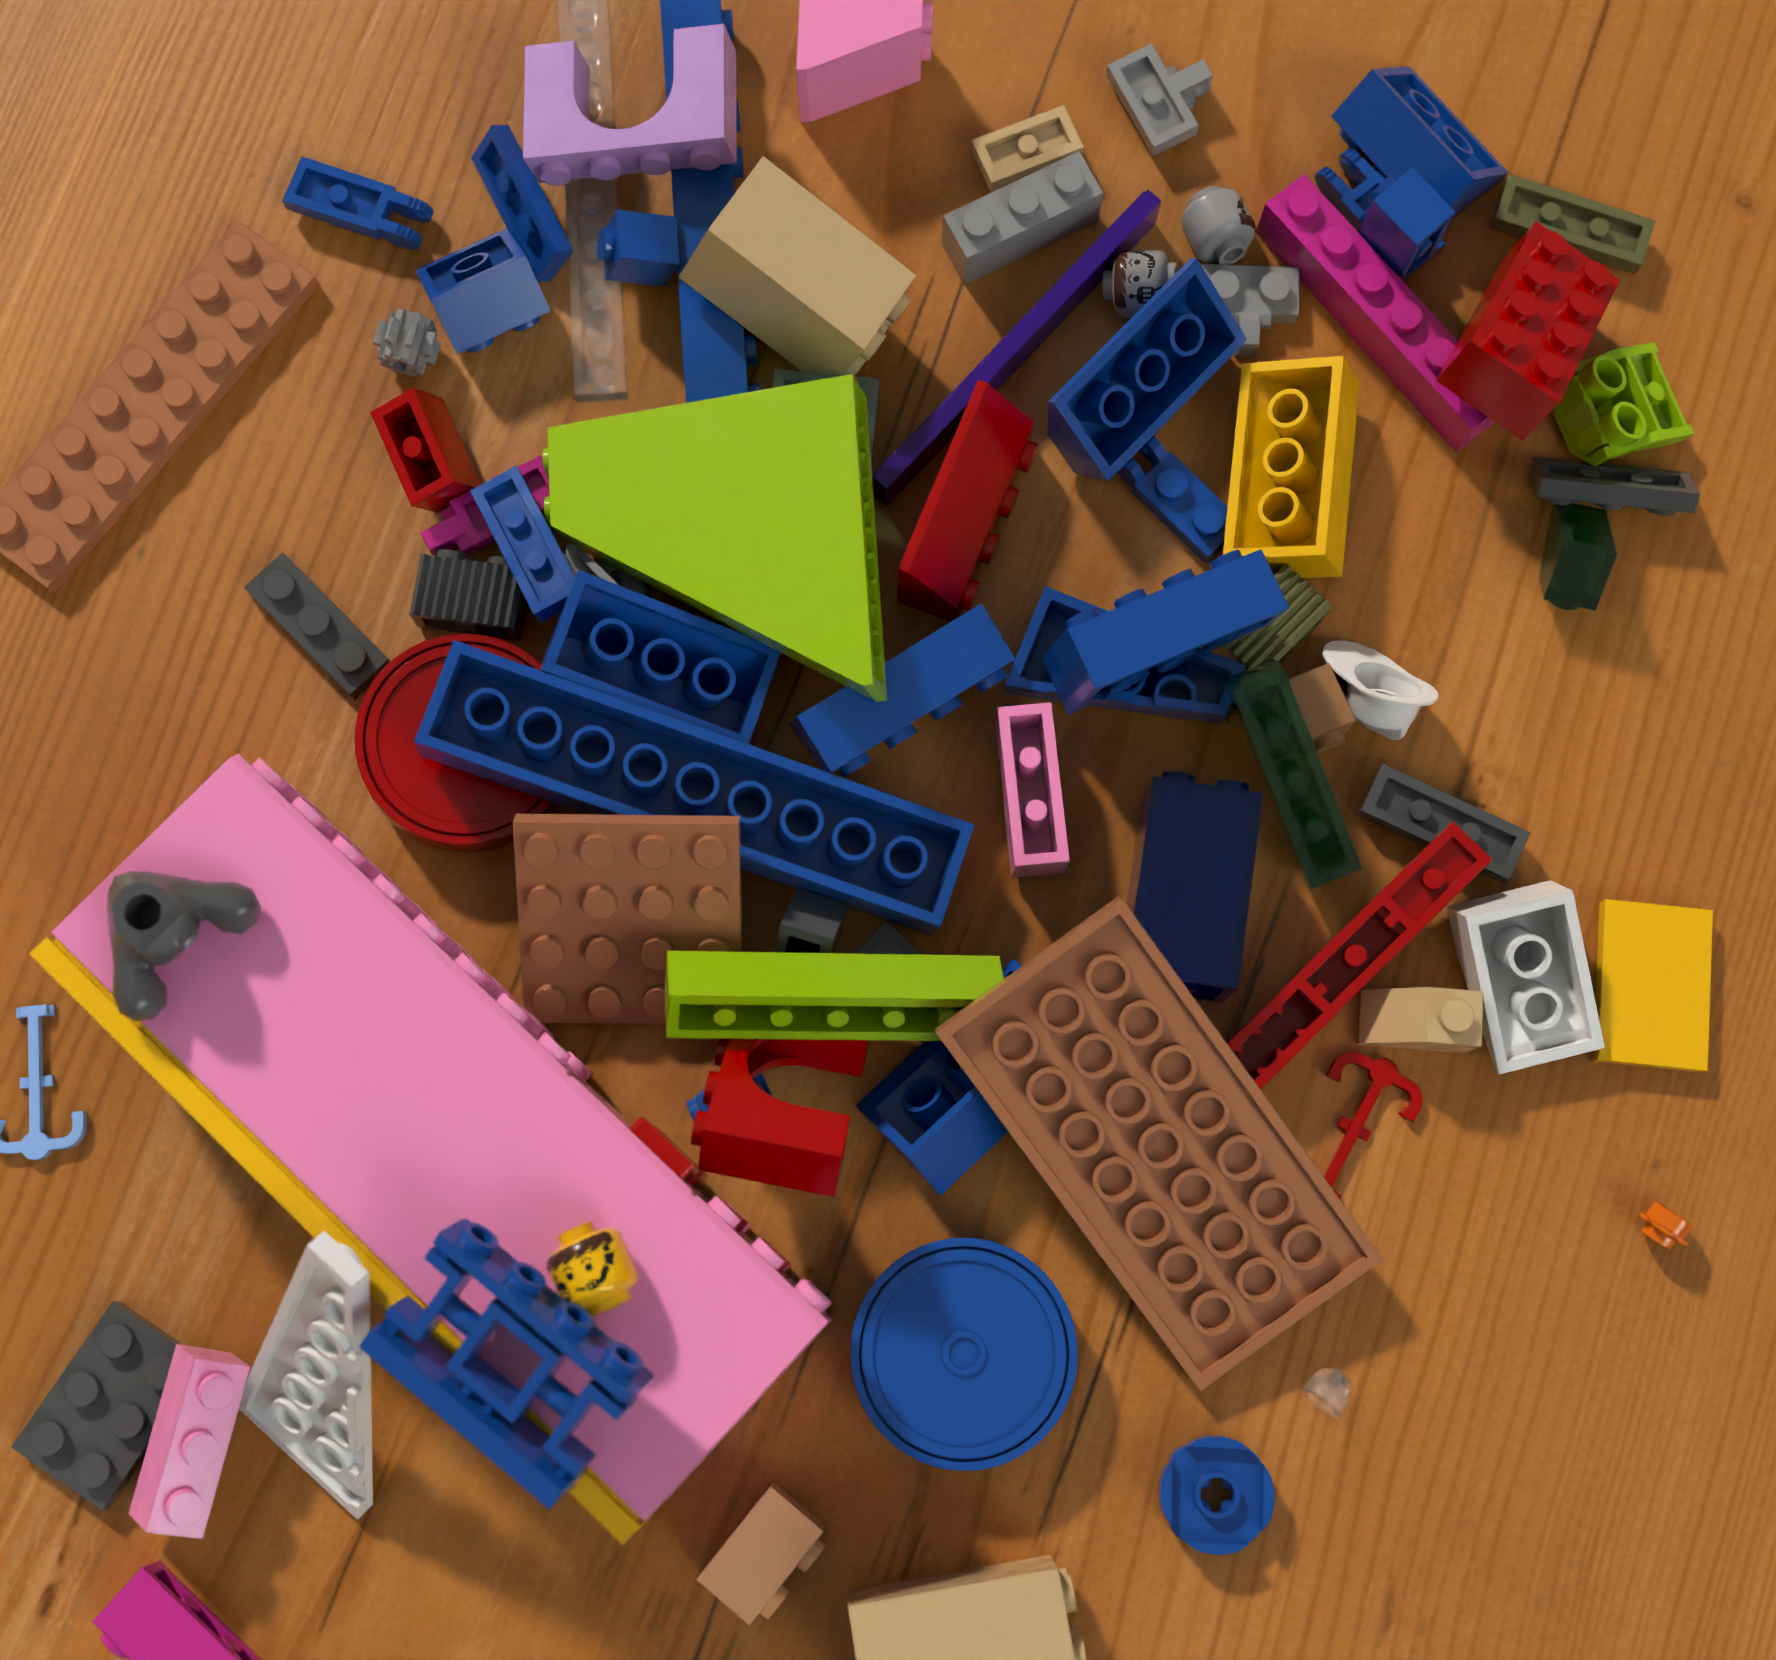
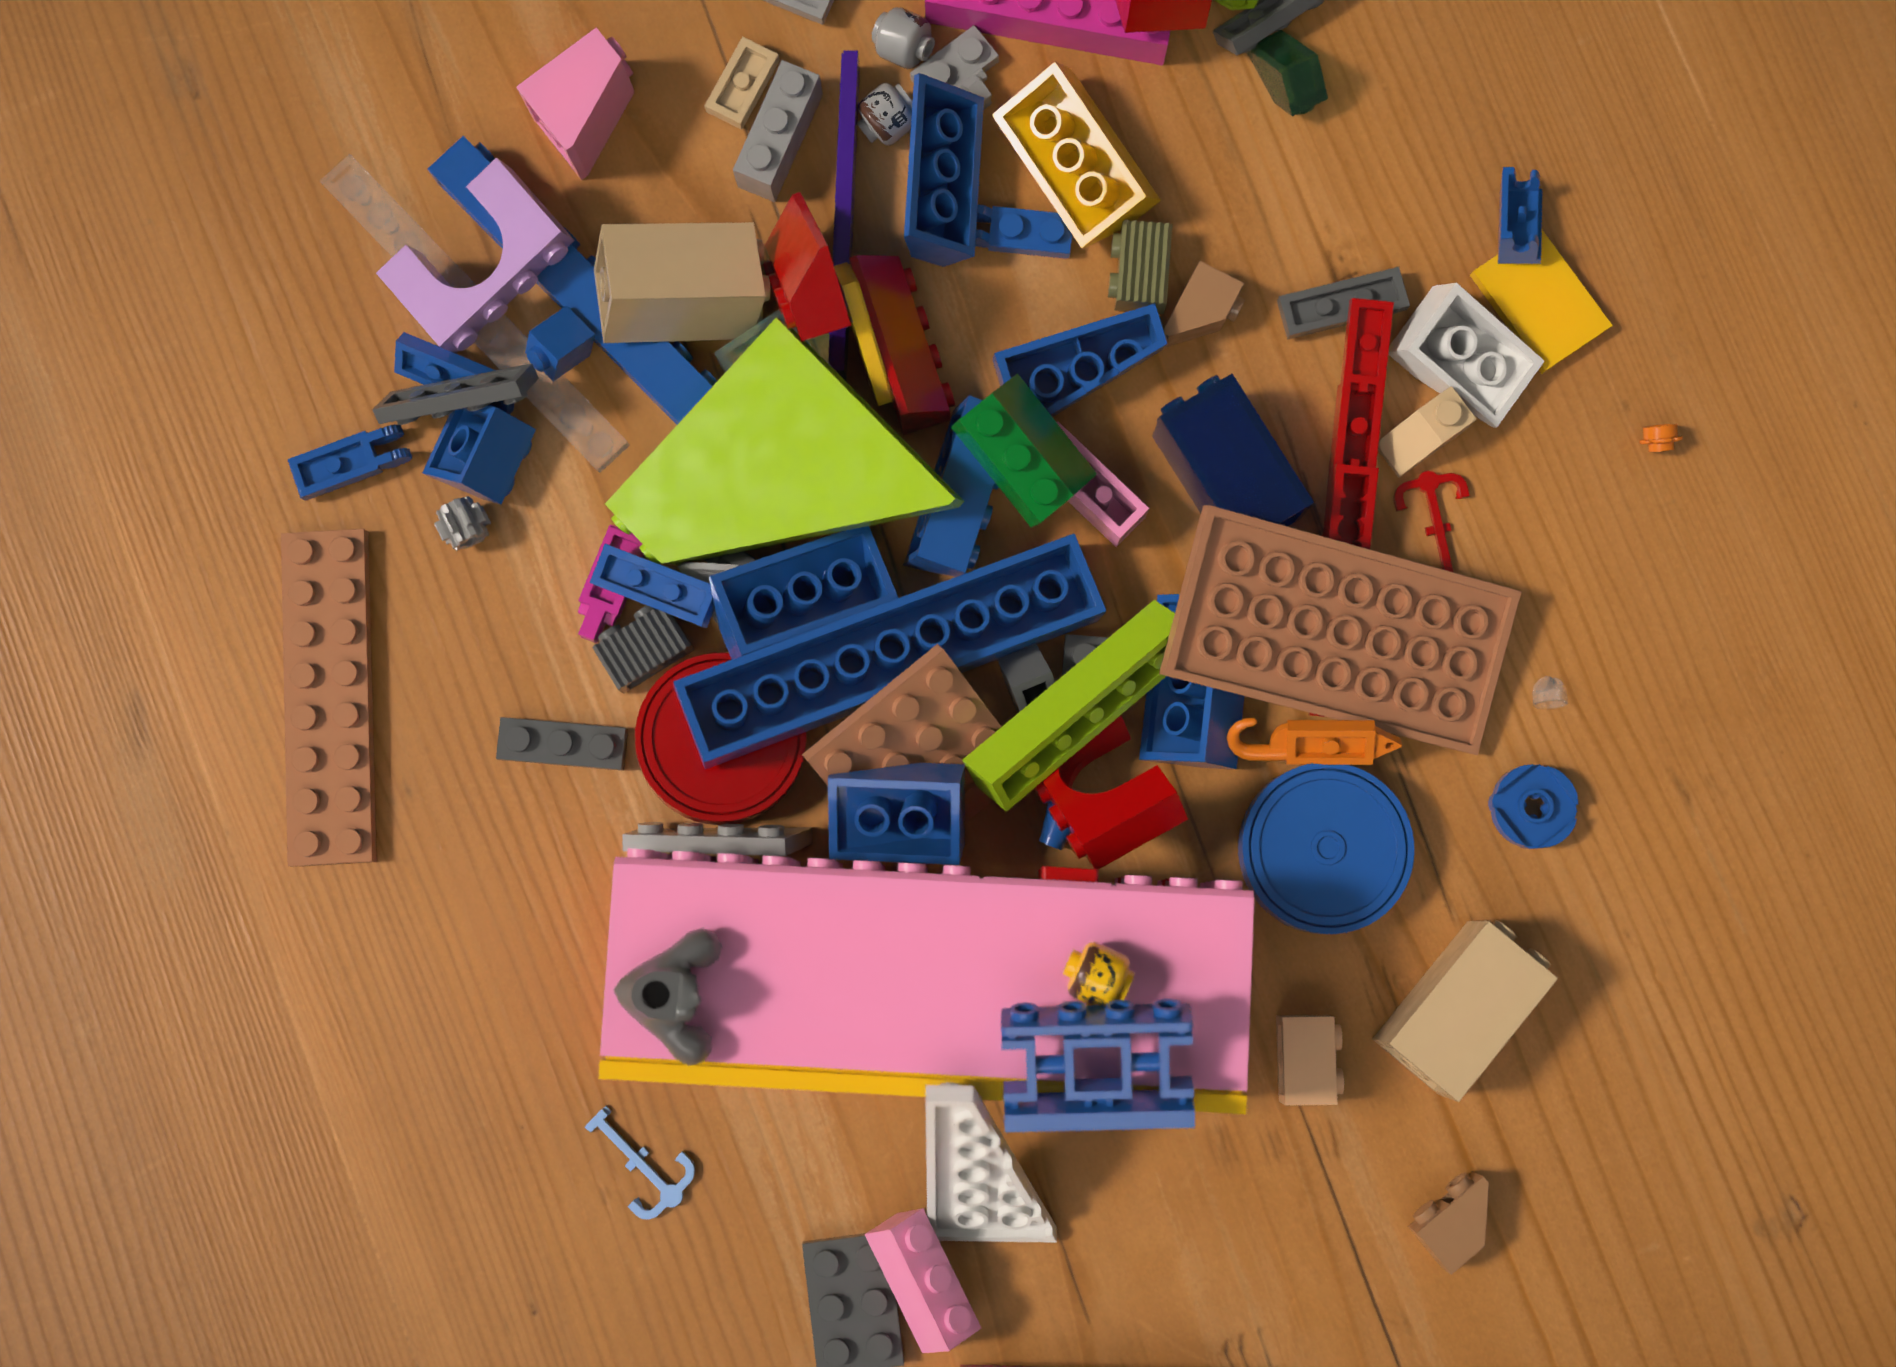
camera: 35 degrees left, 5 degrees up
(378, 838) = (725, 839): none -> light grey wing
(425, 449) = (537, 580): red brick -> none
(494, 213) = (446, 396): none -> dark grey plate
(561, 953) = (898, 814): none -> blue slope
(919, 363) = (804, 273): none -> red slope
(934, 446) = (864, 334): none -> yellow tile
(990, 698) = (1024, 450): none -> green slope
(1042, 1236) = (1316, 742): none -> orange plate
(1163, 627) = (1093, 322): blue wedge -> none
(1292, 773) = (1235, 346): clear green brick -> none
(1378, 689) = (1239, 252): white piece -> none
(1696, 884) = (1520, 219): none -> blue hinge

